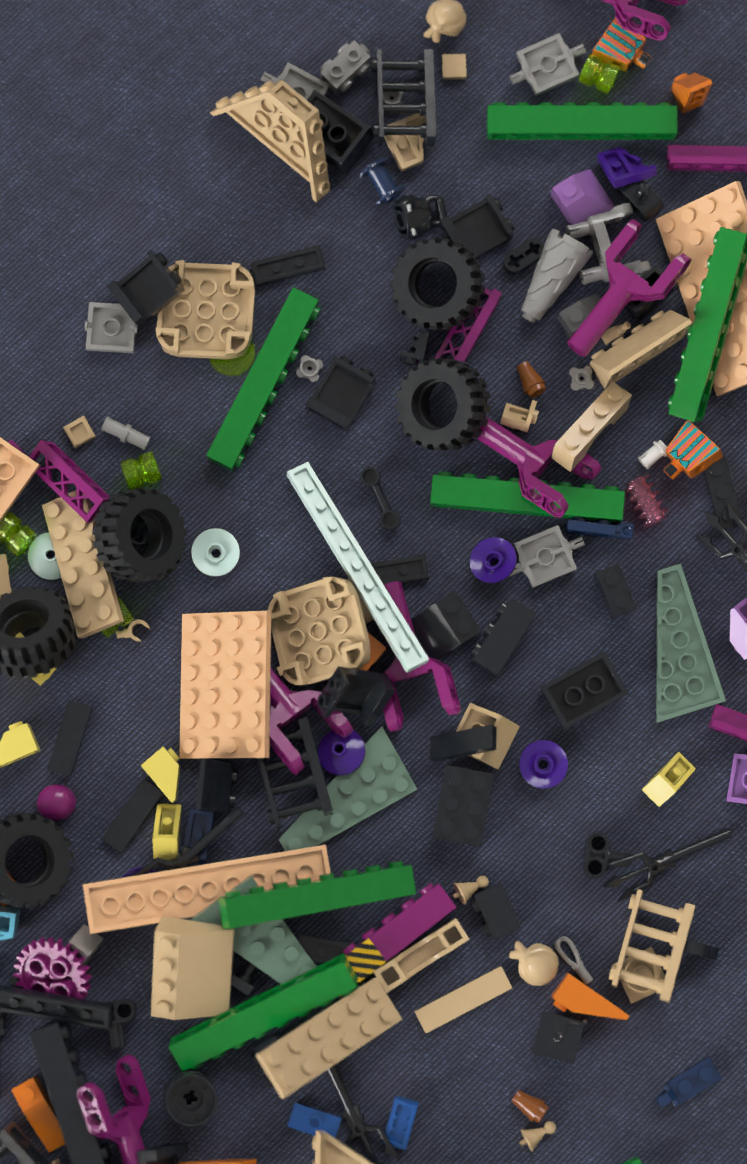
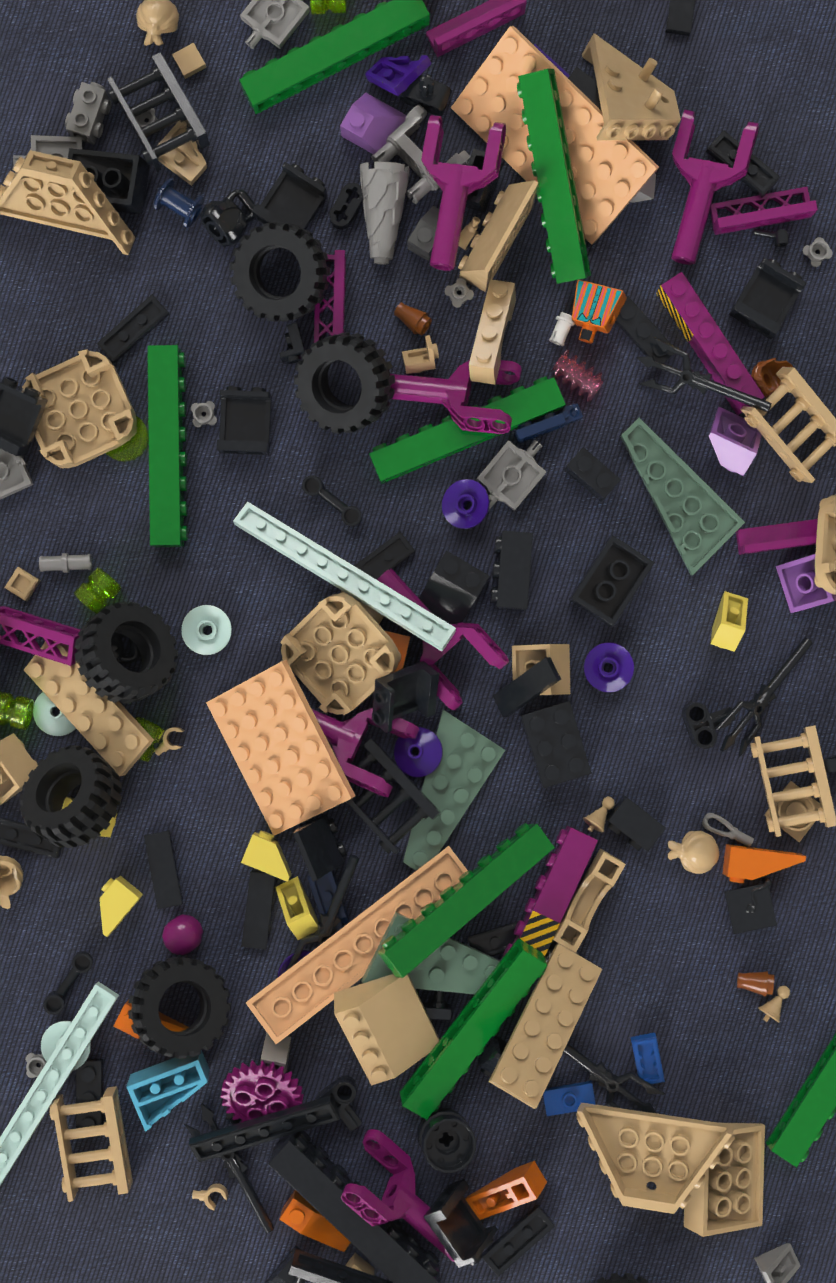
camera: 25 degrees left, 5 degrees up
(463, 999) = (645, 918): tan tile -> none

